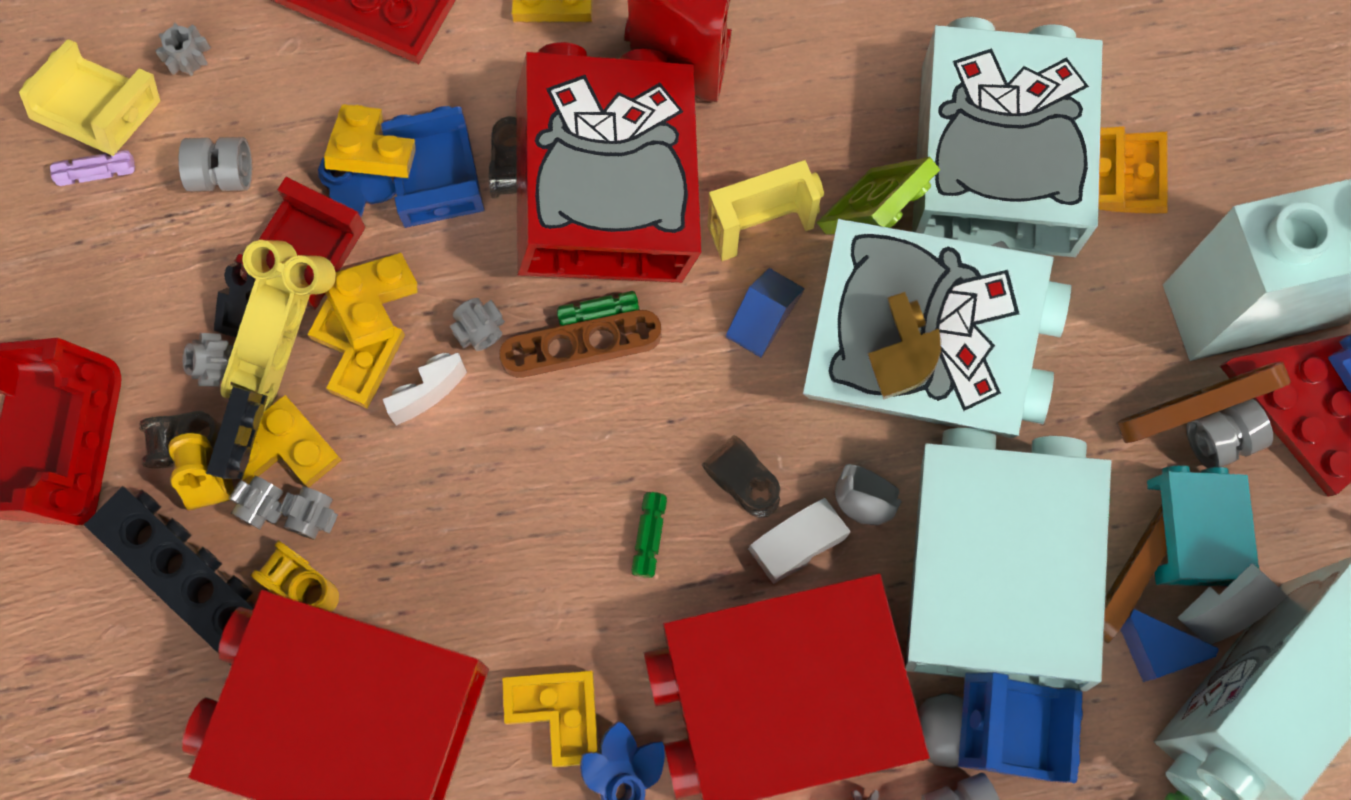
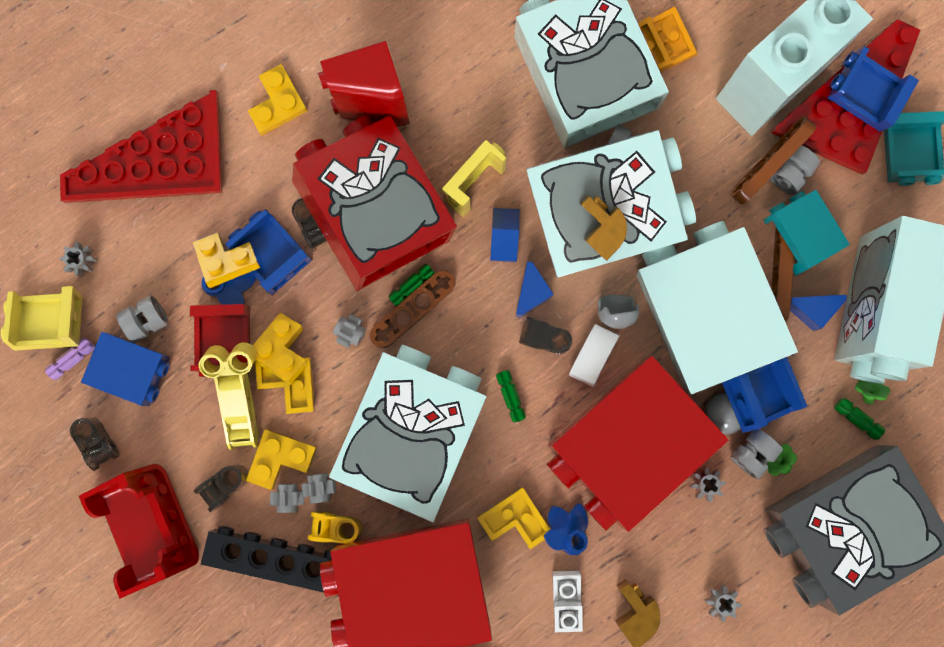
camera: 25 degrees left, 10 degrees up
(51, 296) = (93, 444): none -> clear smoke piece
(153, 218) = (126, 370): none -> blue panel
(191, 459) = (246, 499): yellow piece -> none
(207, 359) = (209, 434): light grey gear -> none
(232, 301) = (205, 394): black plate -> none
(237, 434) = (255, 460): black plate -> none
(438, 379) = (345, 374): white slope -> none
(477, 503) = (409, 433): none -> brick
(759, 407) = (533, 291): none -> blue slope
(881, 194) = (537, 137): lime plate -> none
(1236, 608) = (837, 275): white slope -> none

